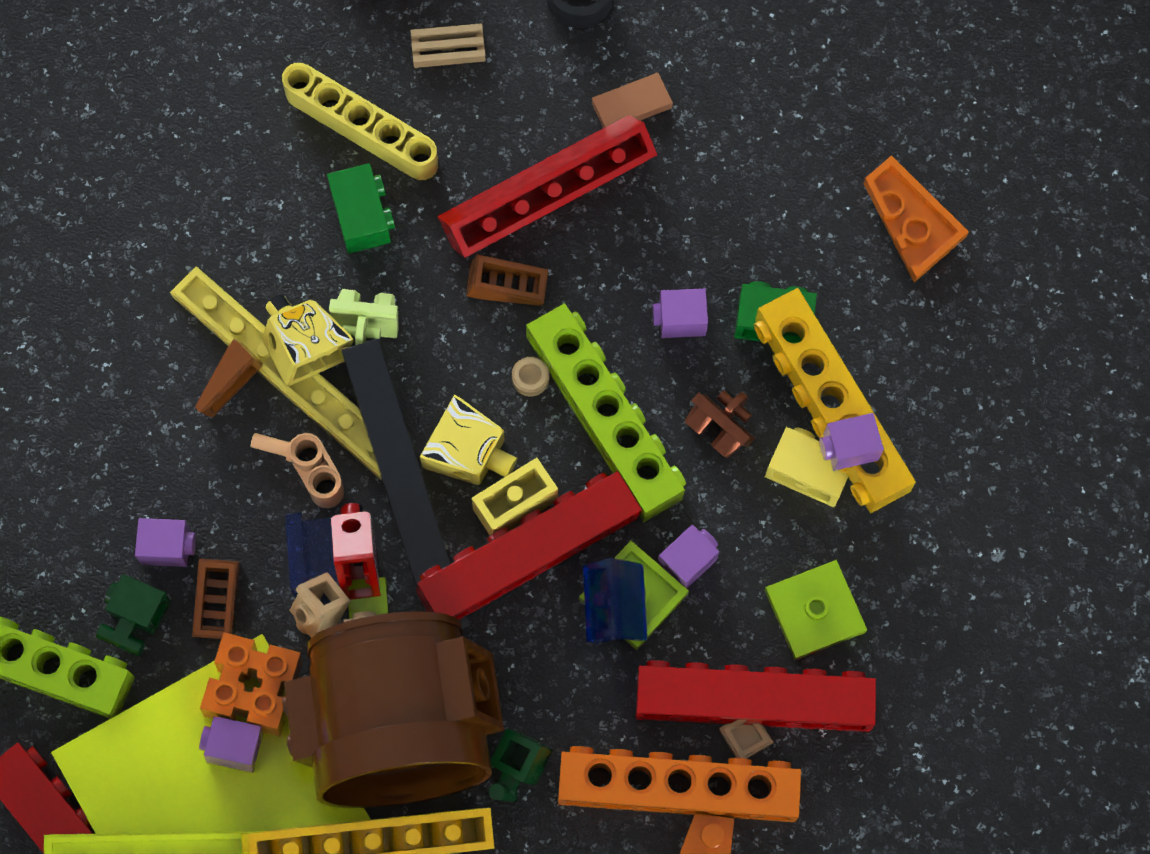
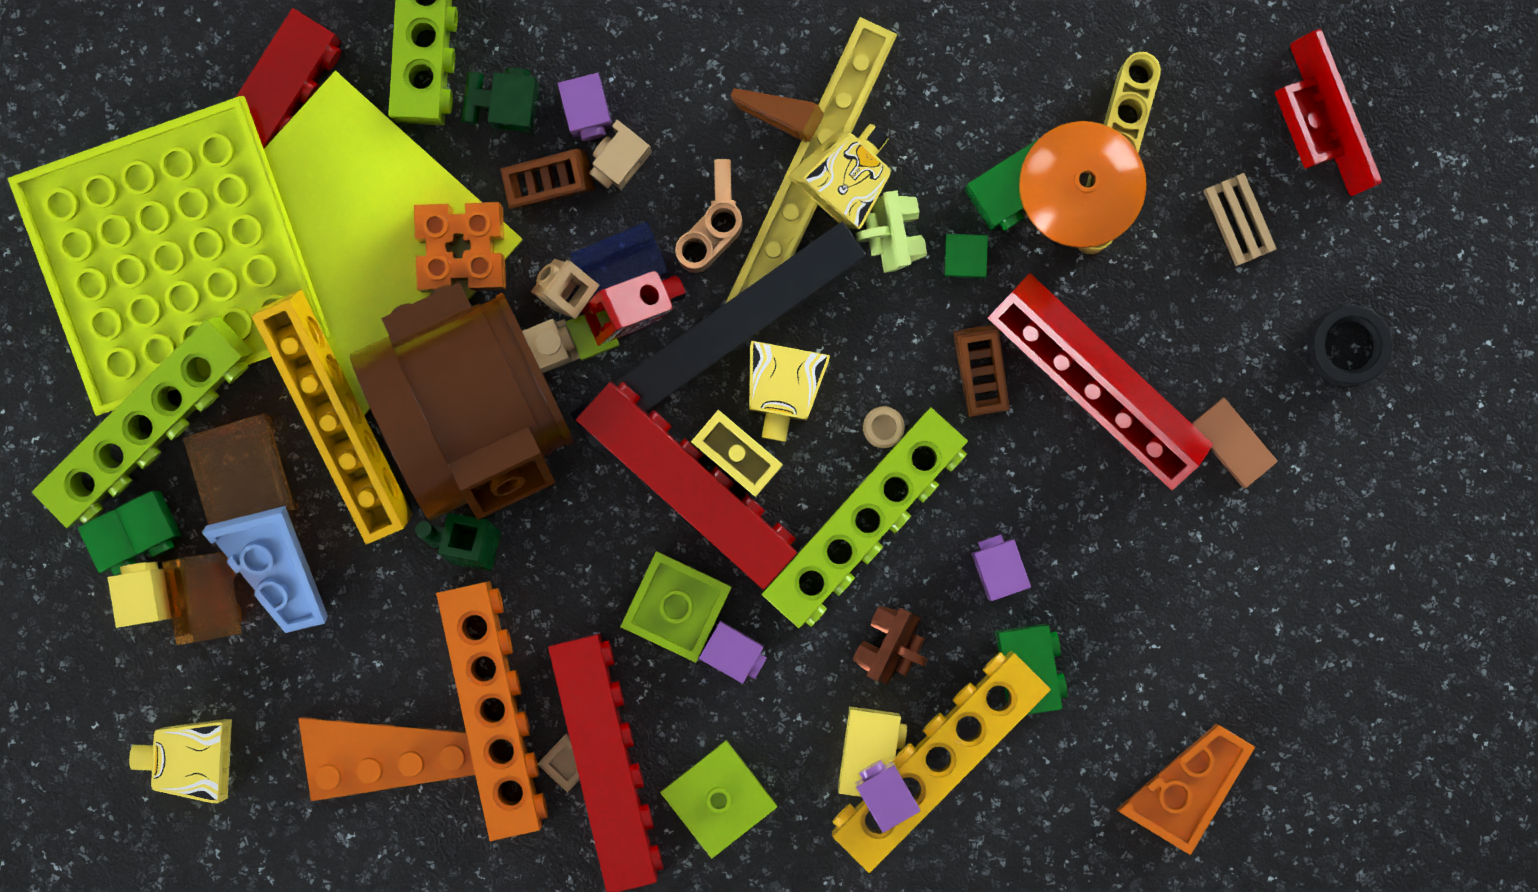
camera: 80 degrees right, 15 degrees up
(219, 526) = (619, 157): none -> tan brick
(231, 743) = (393, 247): medium lavender brick -> none
(381, 168) = (1064, 207): none -> orange dish
(405, 266) = (965, 255): none -> green tile
(614, 601) = (657, 590): clear blue panel -> none

